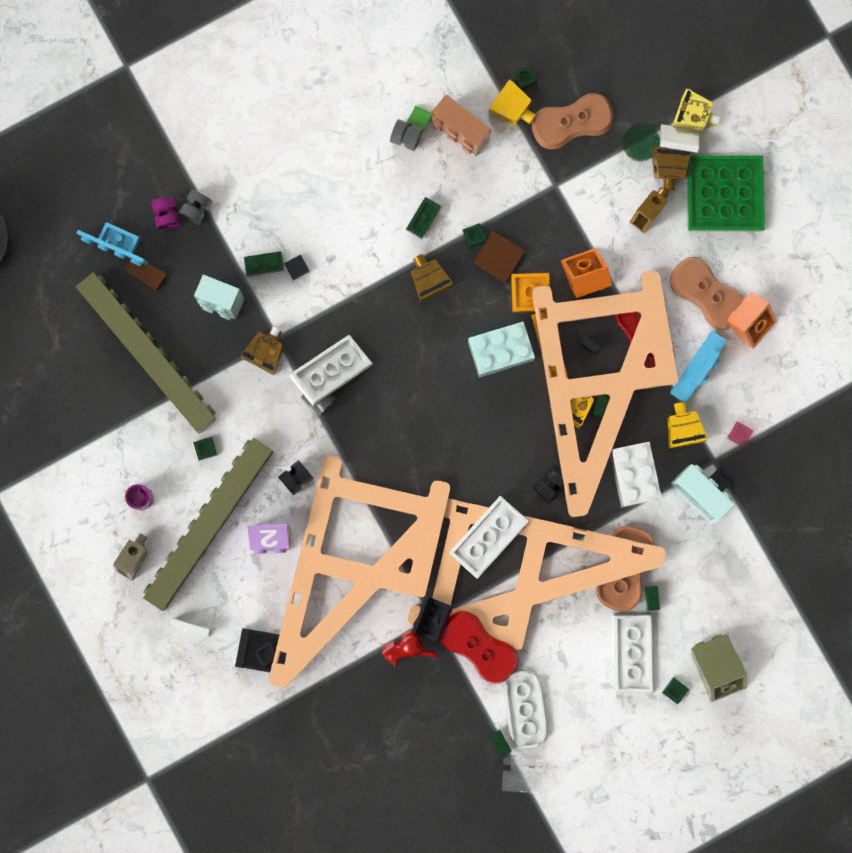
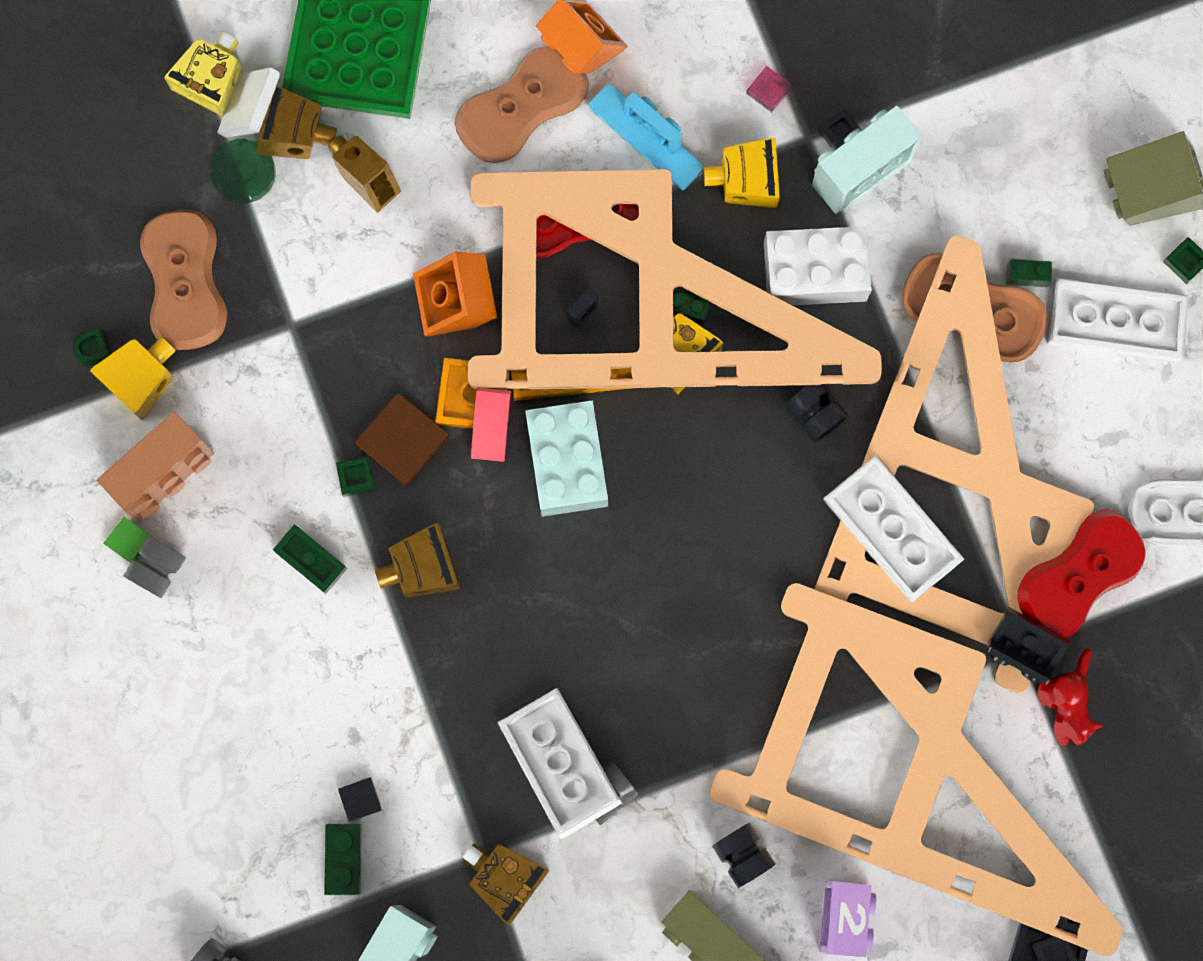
camera: 80 degrees left, 5 degrees down
(513, 304) = (490, 424): none -> coral slope

